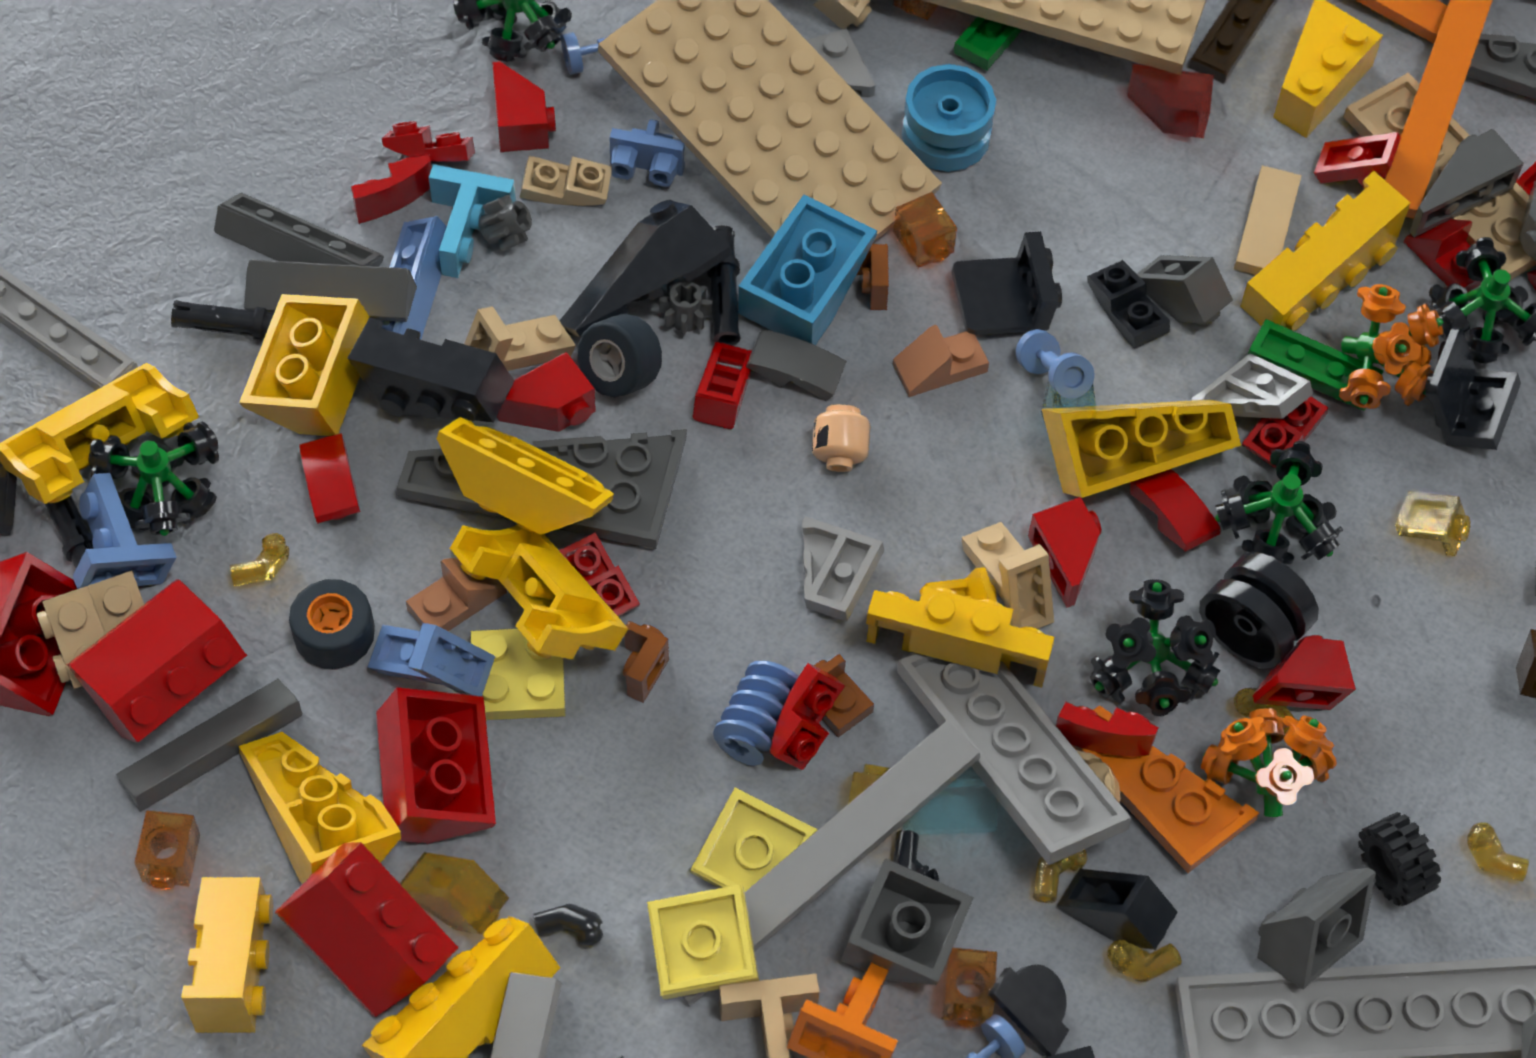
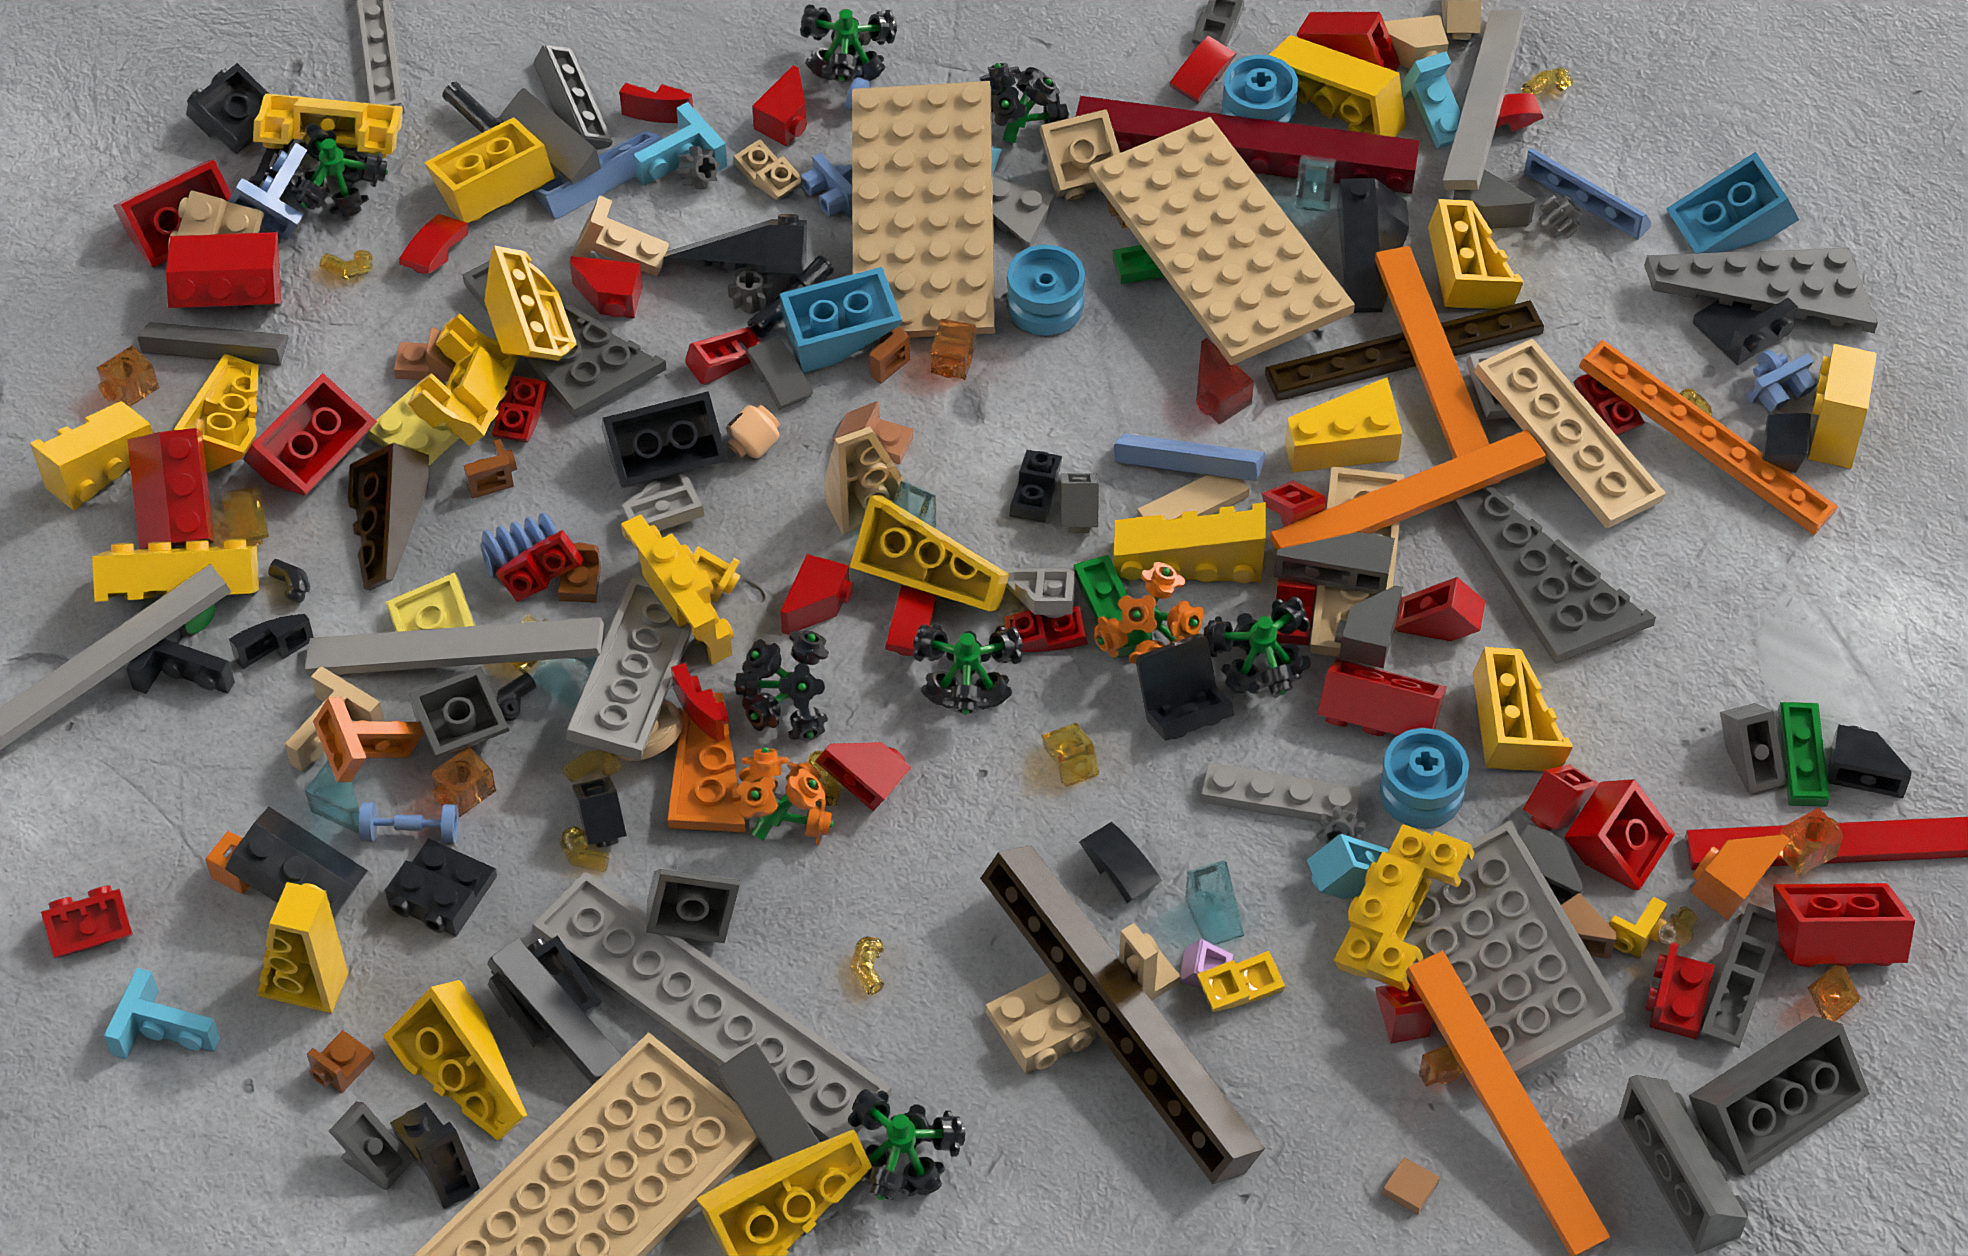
camera: 45 degrees right, 5 degrees down
(343, 611) = (344, 324): black wheel -> none
(417, 141) = (706, 91): red slope -> none
(429, 378) = (538, 220): black wedge -> none
(432, 657) = (370, 381): medium blue bracket -> none
(585, 775) = (387, 496): none -> dark brown wedge
(619, 355) = (671, 288): black wheel -> none
(628, 992) = (280, 634): none -> black slope
(702, 941) = (340, 637): light yellow plate -> none
(777, 507) = (663, 440): none -> black slope
(1008, 292) = (959, 420): black bracket -> none
(1009, 414) = (855, 472): none -> tan wedge
(1016, 573) = (754, 583): tan bracket -> none
(1035, 1003) = (487, 818): black piece -> none
(1068, 374) = (916, 482): medium blue wheel -> none
(1226, 182) = (1189, 457): none -> medium blue slope
(1259, 609) = (878, 707): black wheel -> none
(1399, 858) = (791, 910): black tyre -> none

